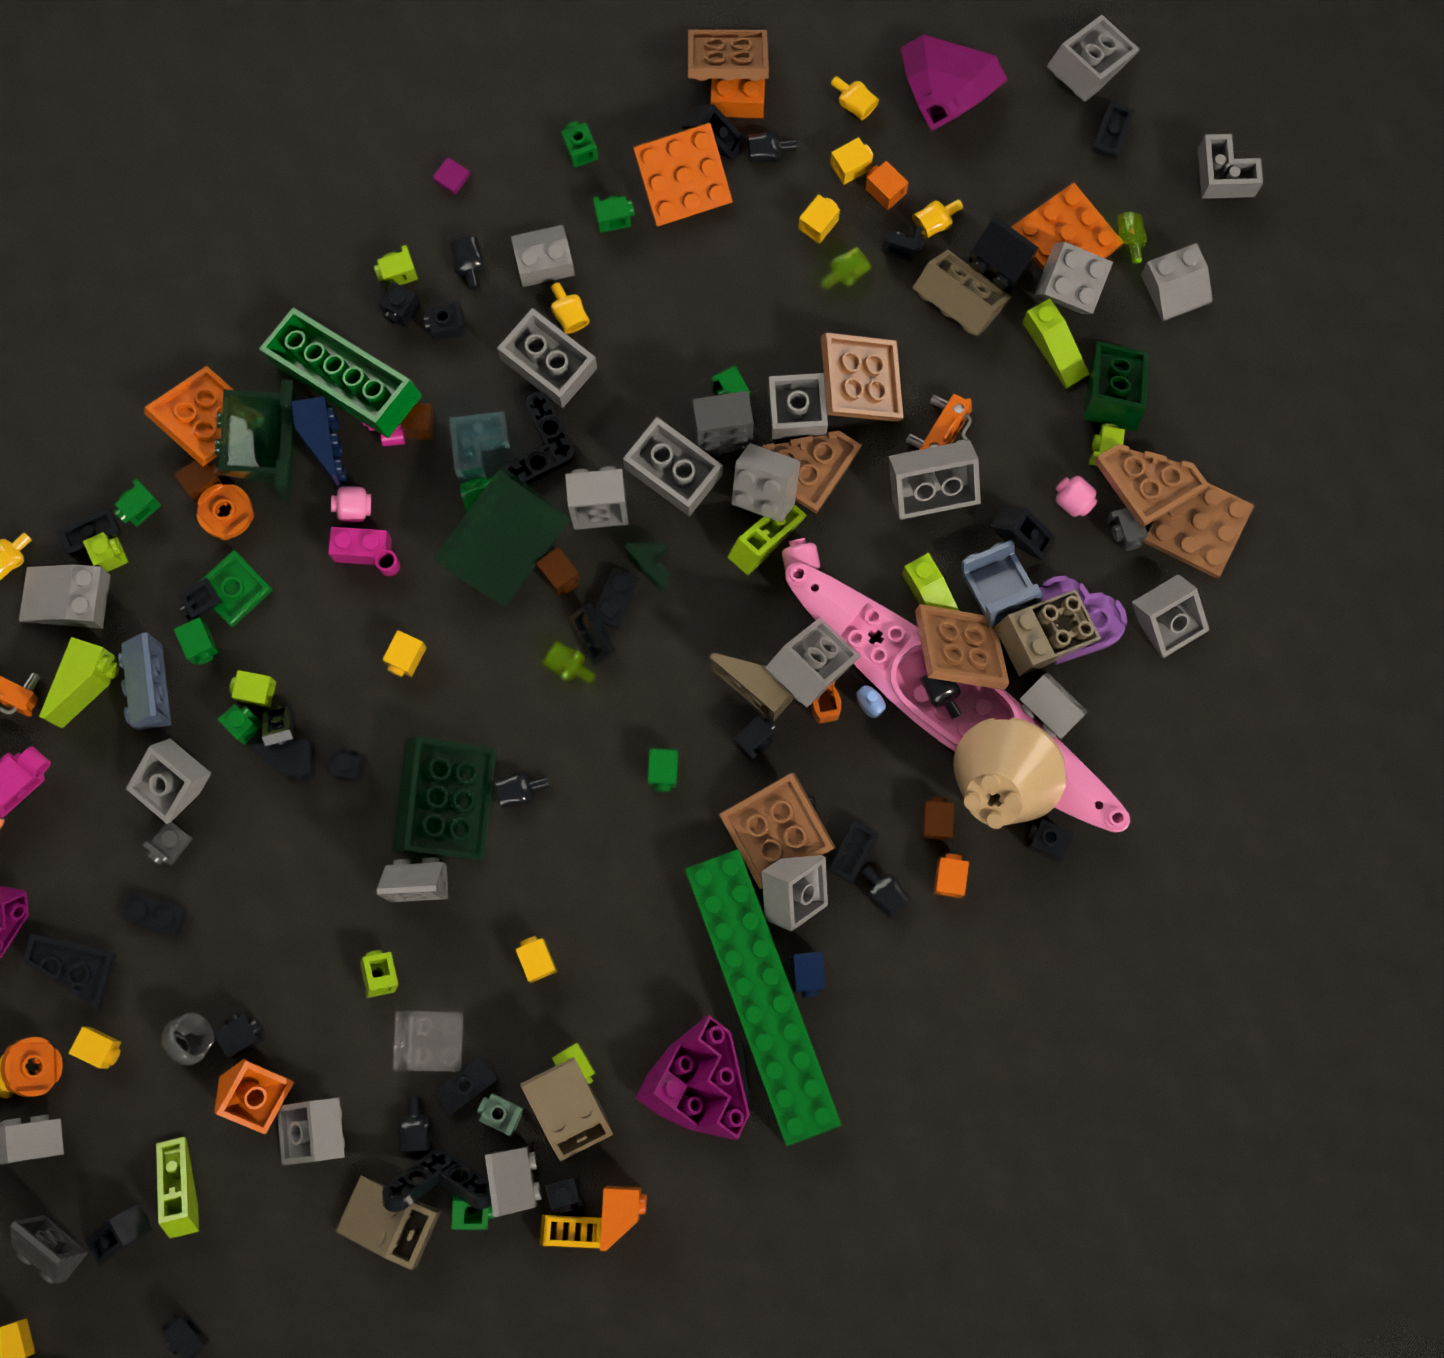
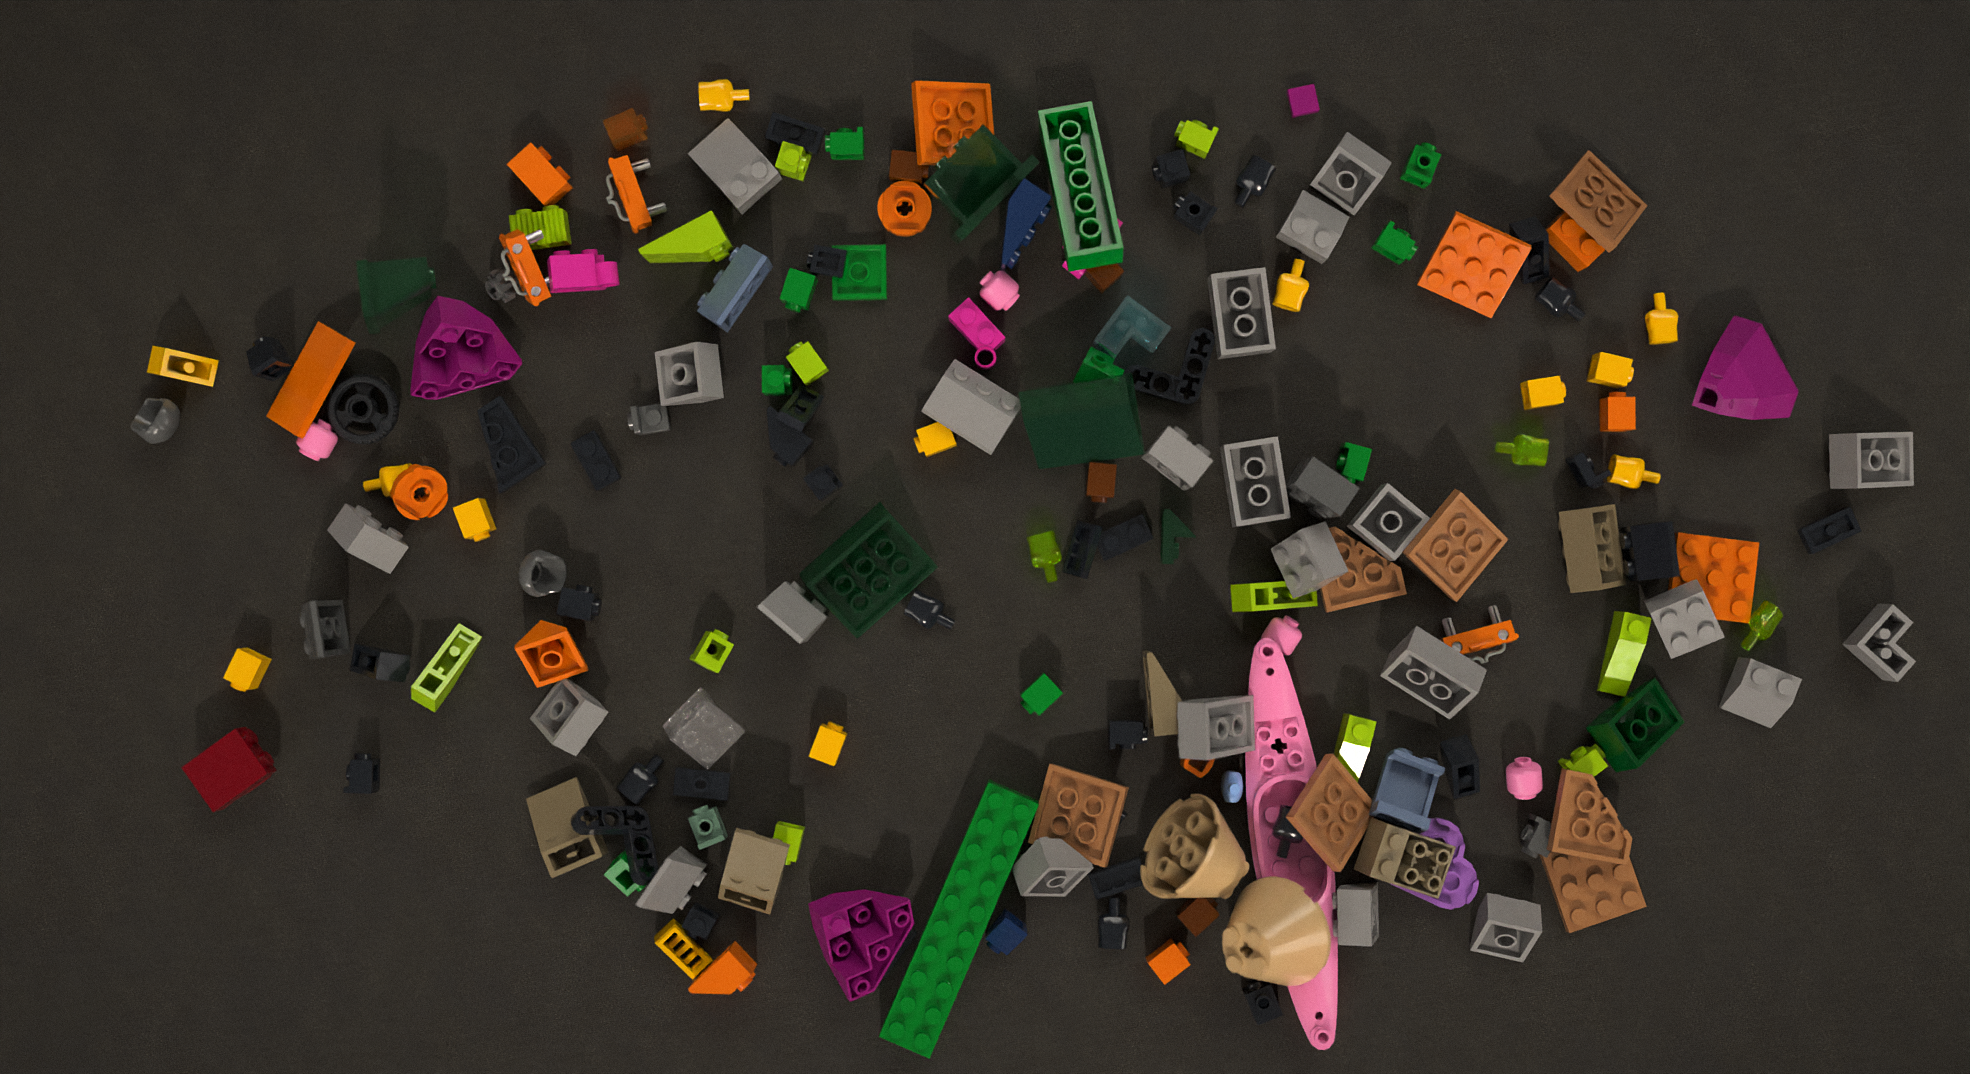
camera: 40 degrees right, 10 degrees up
(409, 603) = (972, 406): none -> light grey slope
(534, 193) = (1351, 173): none -> light grey slope
(888, 773) = (1192, 853): none -> tan cone

